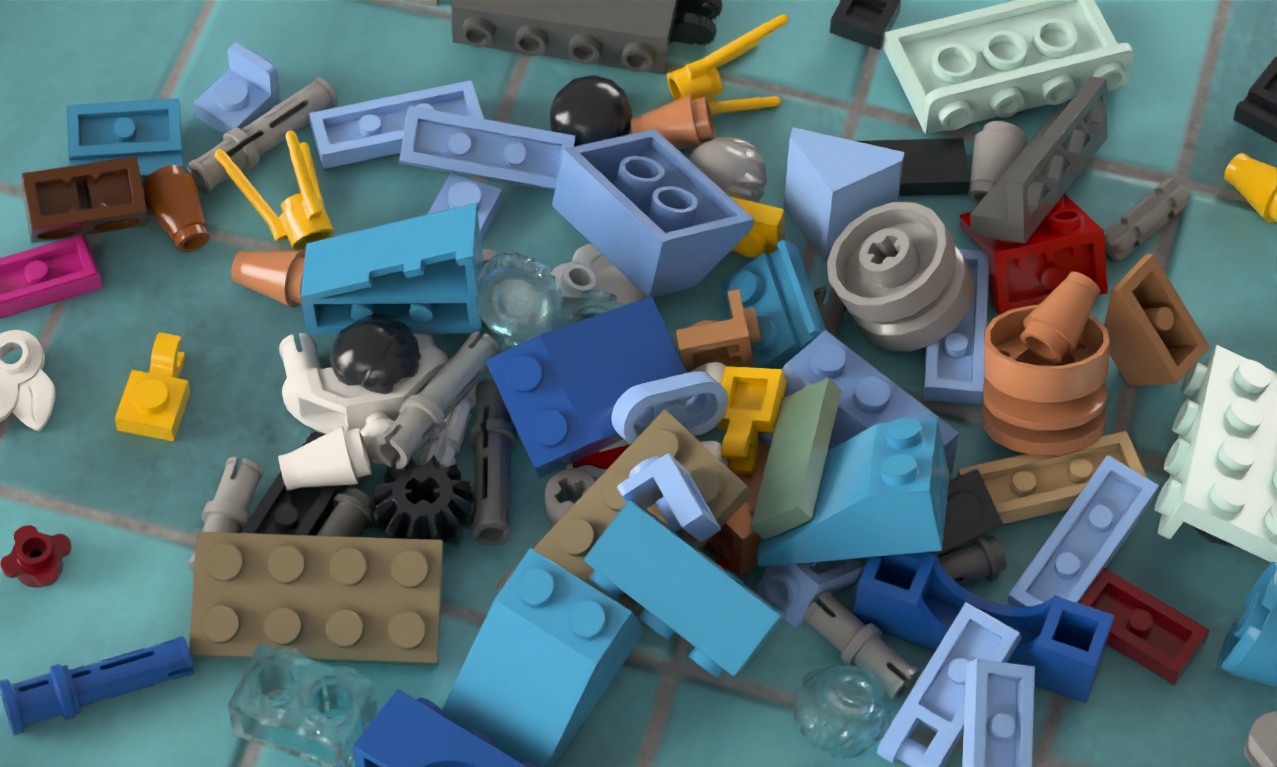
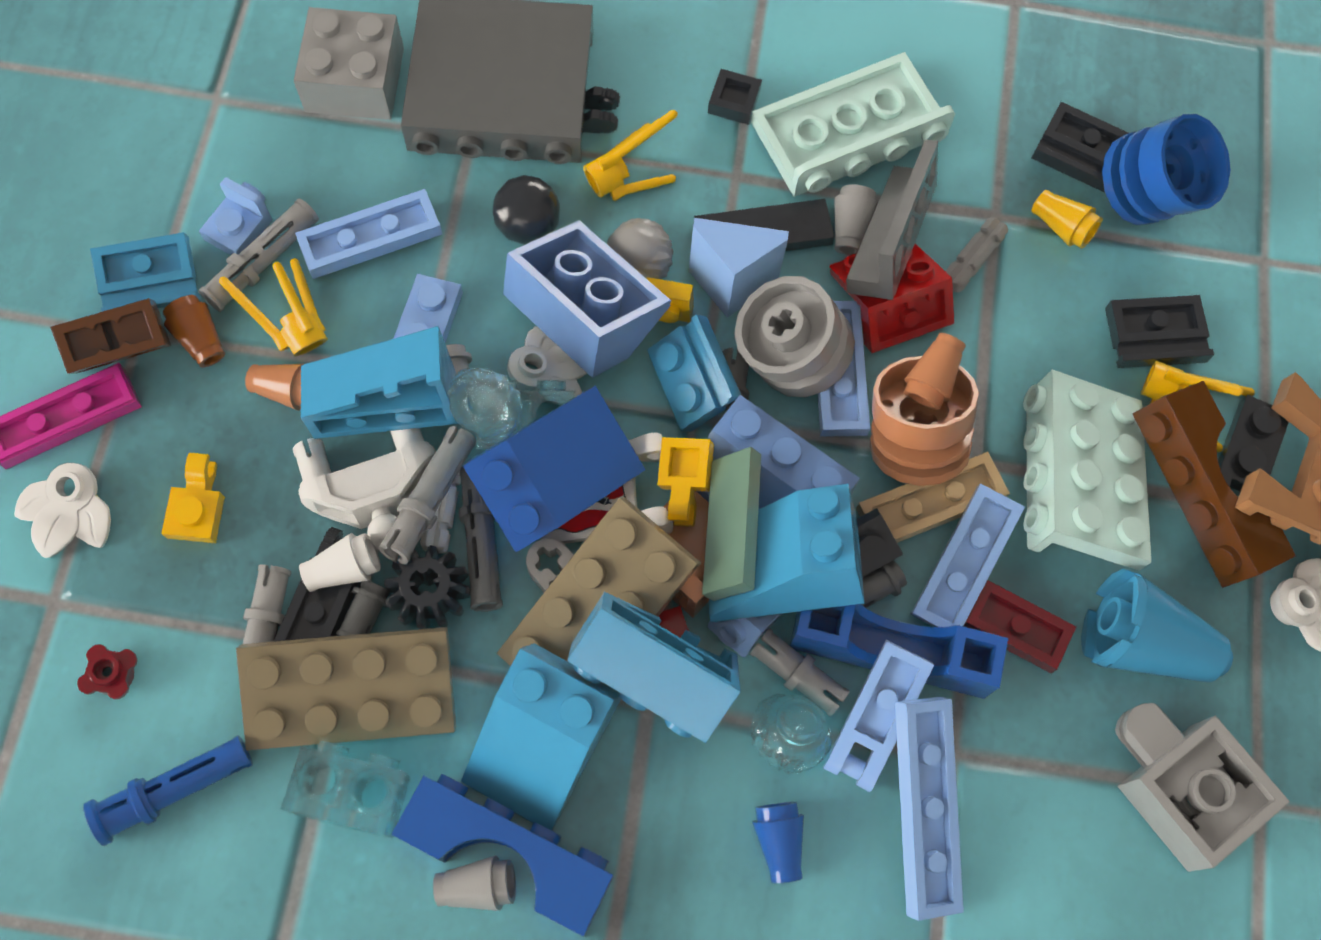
camera: 10 degrees left, 15 degrees up
(375, 353) = (371, 459): black hair -> none
(483, 148) = (441, 251): light blue plate -> none
(645, 401) = (637, 479): light blue plate -> none
(676, 494) = (644, 588): light blue bracket -> none
(682, 122) = (597, 210): nougat cone -> none
(723, 340) = (656, 416): medium nougat bracket -> none
(1151, 328) = (1003, 363): medium nougat slope -> none

